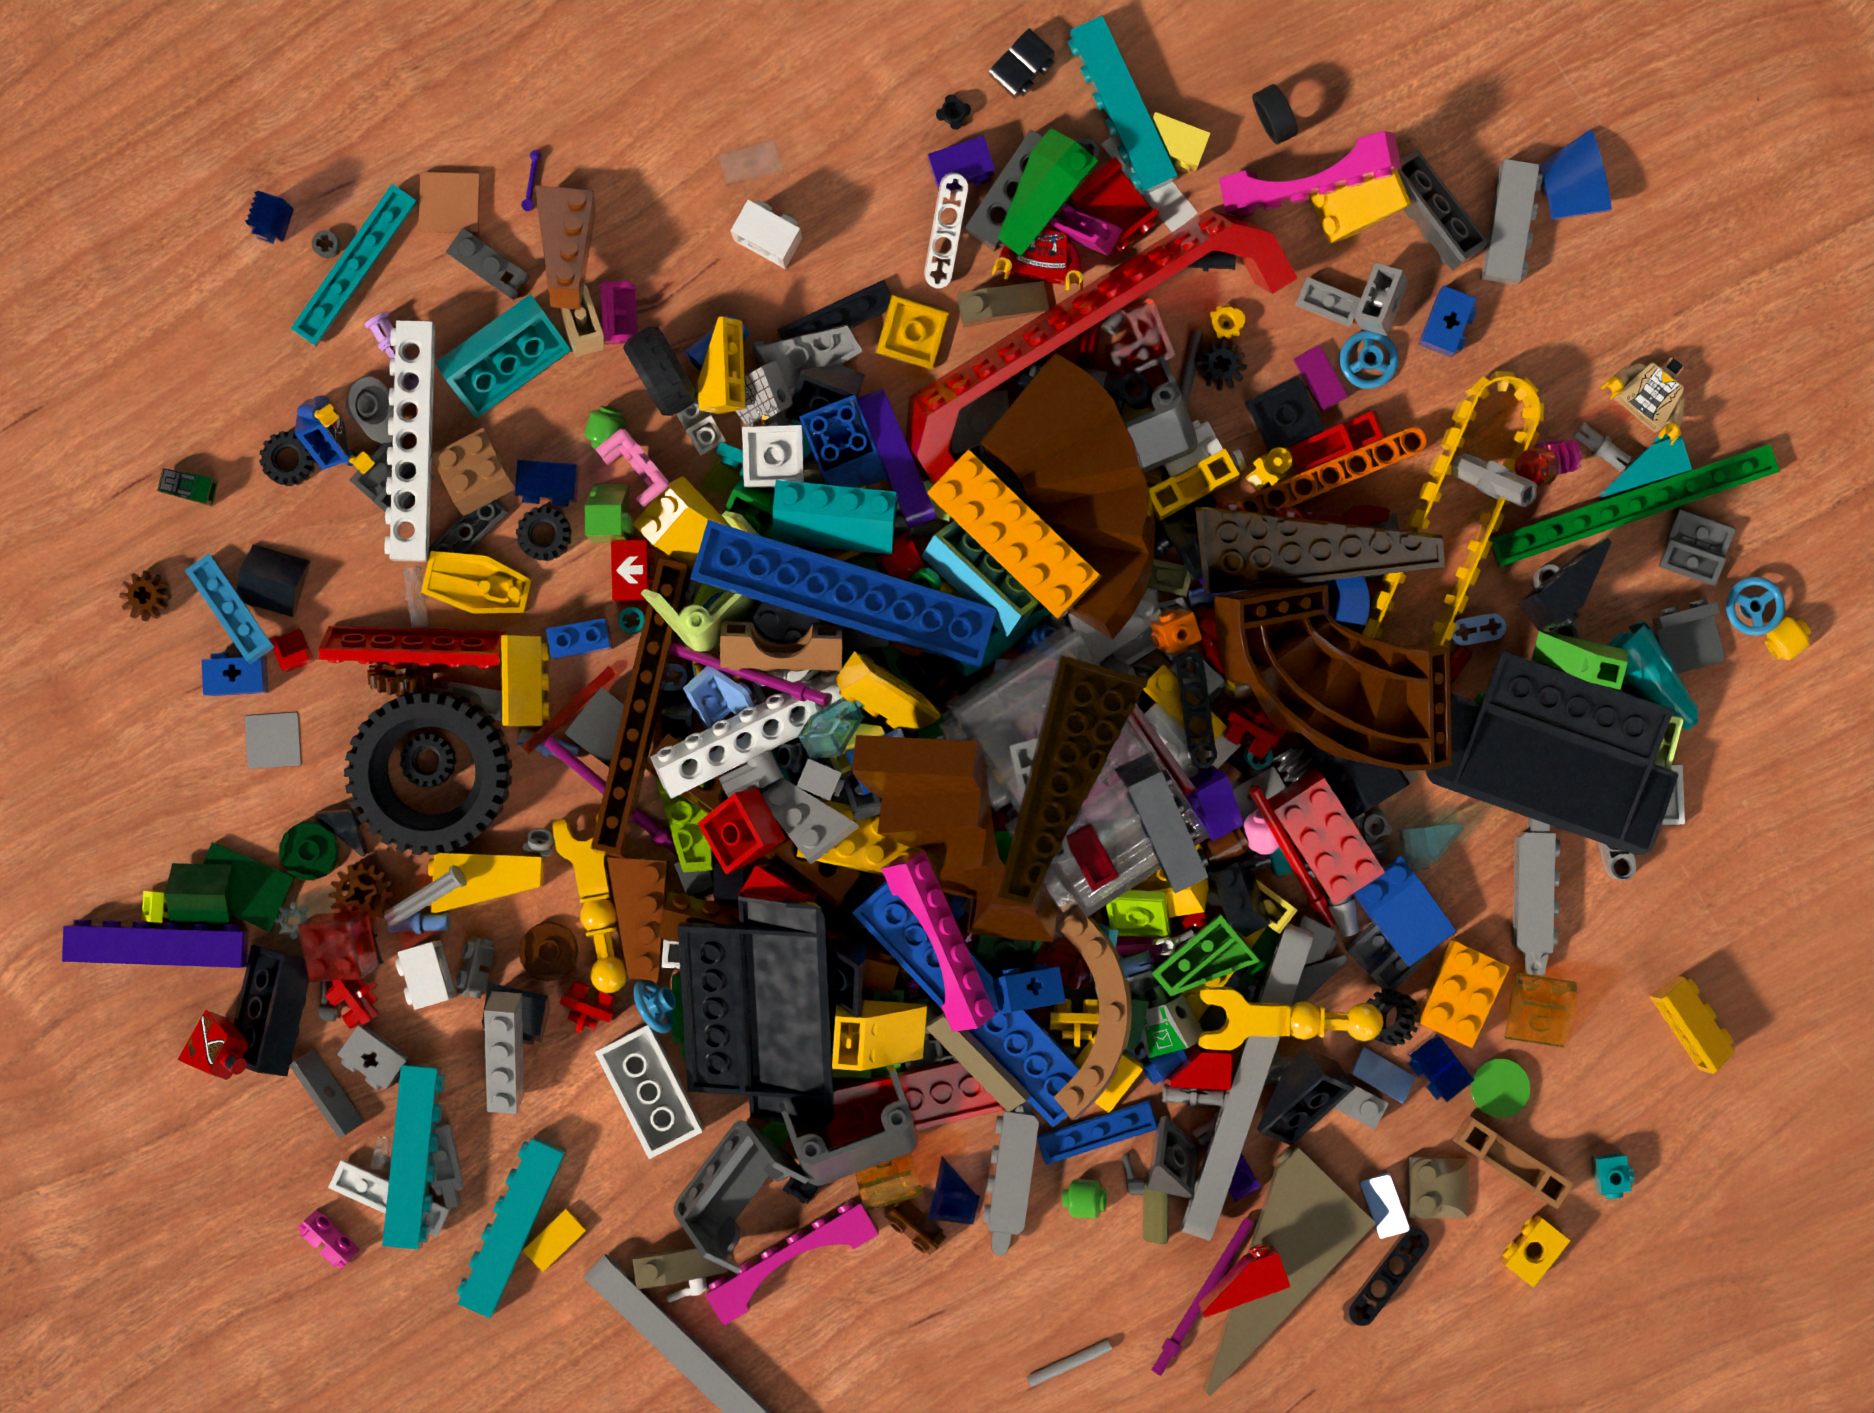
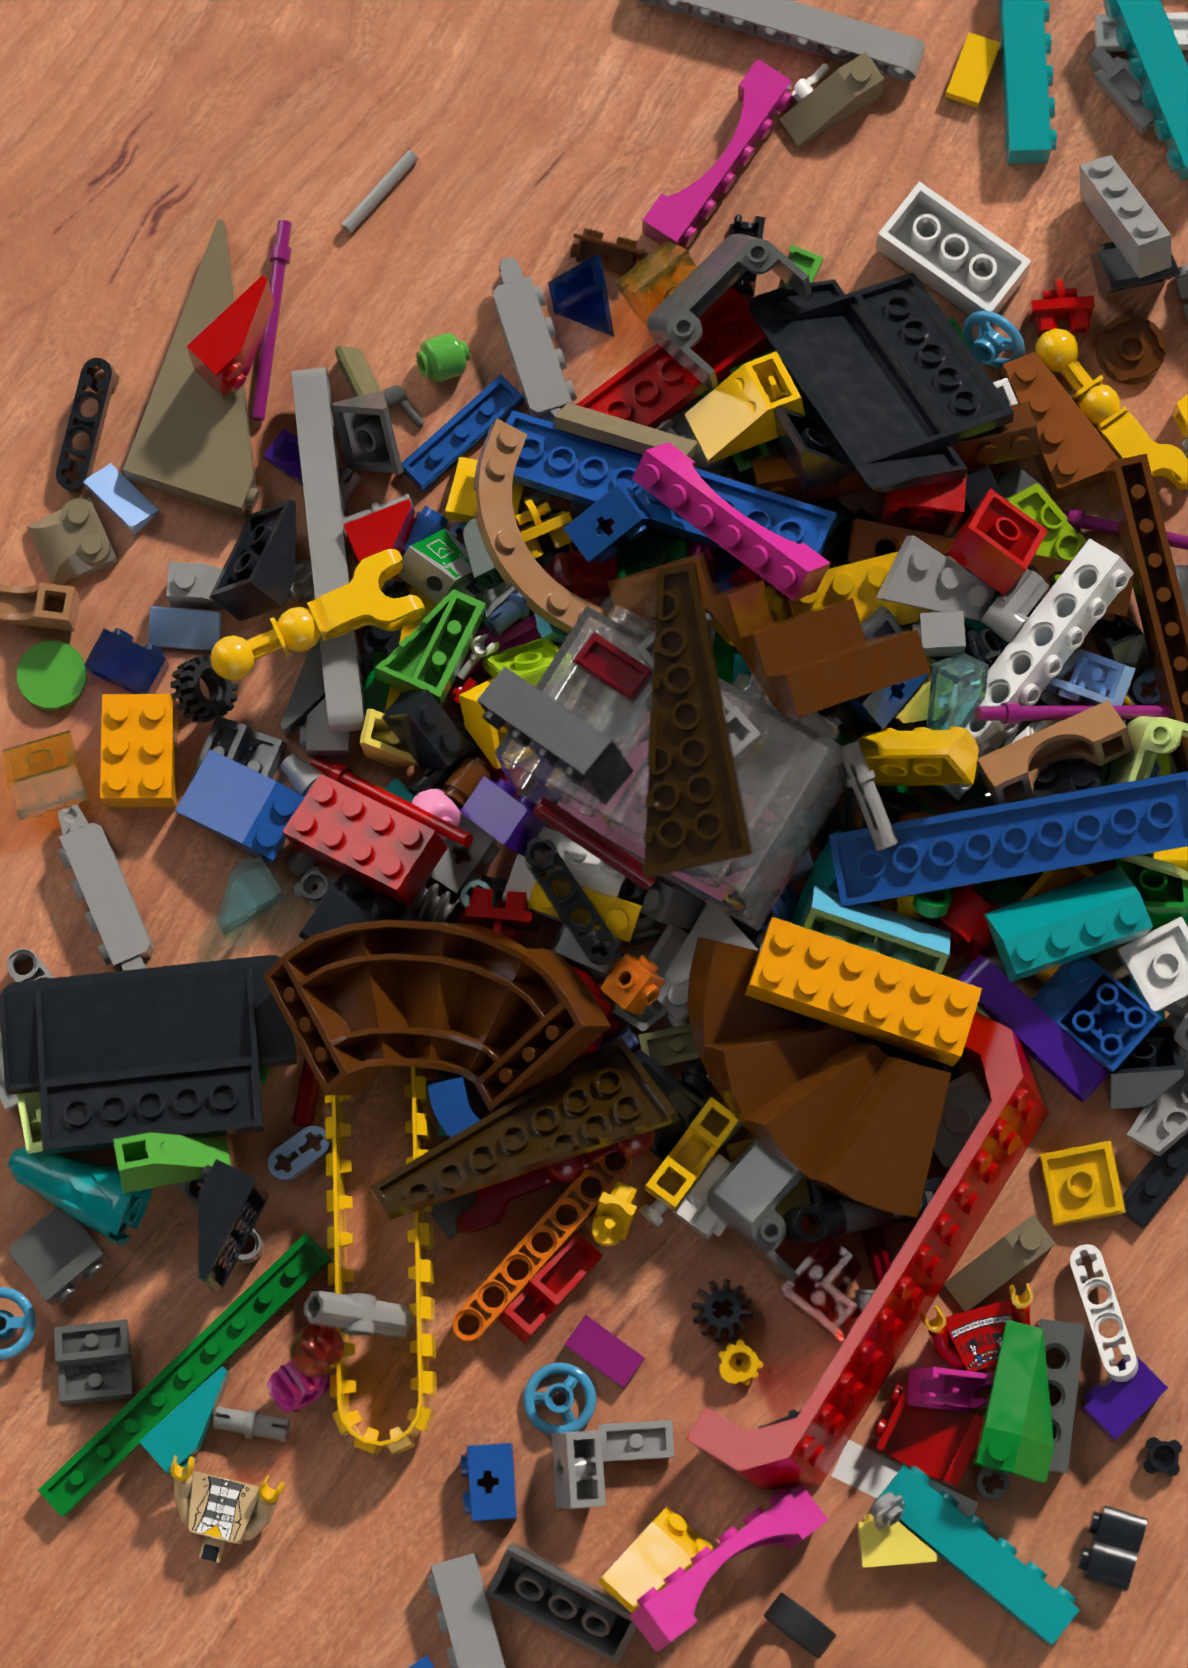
camera: 160 degrees right, 10 degrees down
(725, 1188) = (825, 192): dark grey windscreen -> none
(940, 684) = (867, 795): none -> light grey pin
(1175, 161) = (887, 1510): none -> light grey plate
(1190, 365) = (754, 1290): flat silver bar -> none
(1284, 415) = (624, 1288): black plate -> none

